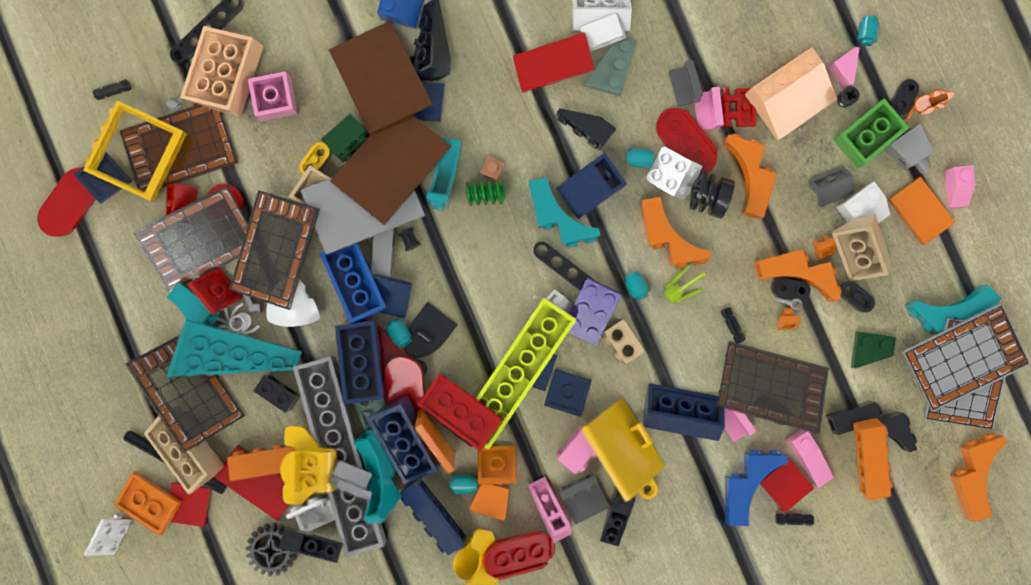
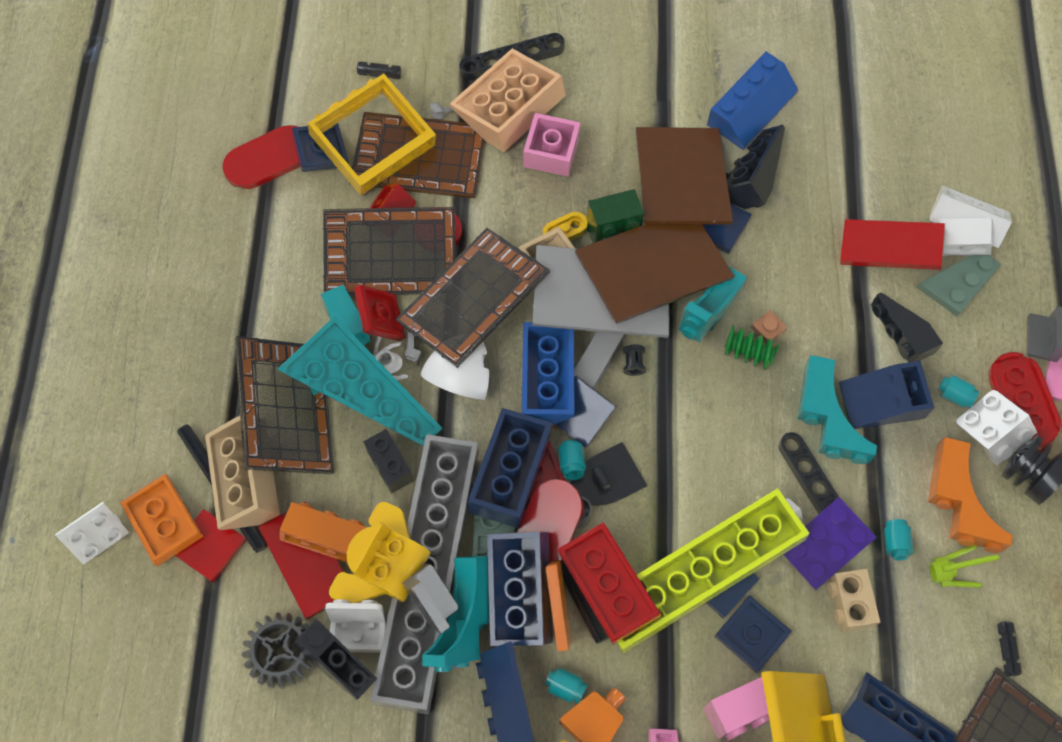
camera: 25 degrees right, 20 degrees down
(497, 465) = (622, 679): orange tile -> none

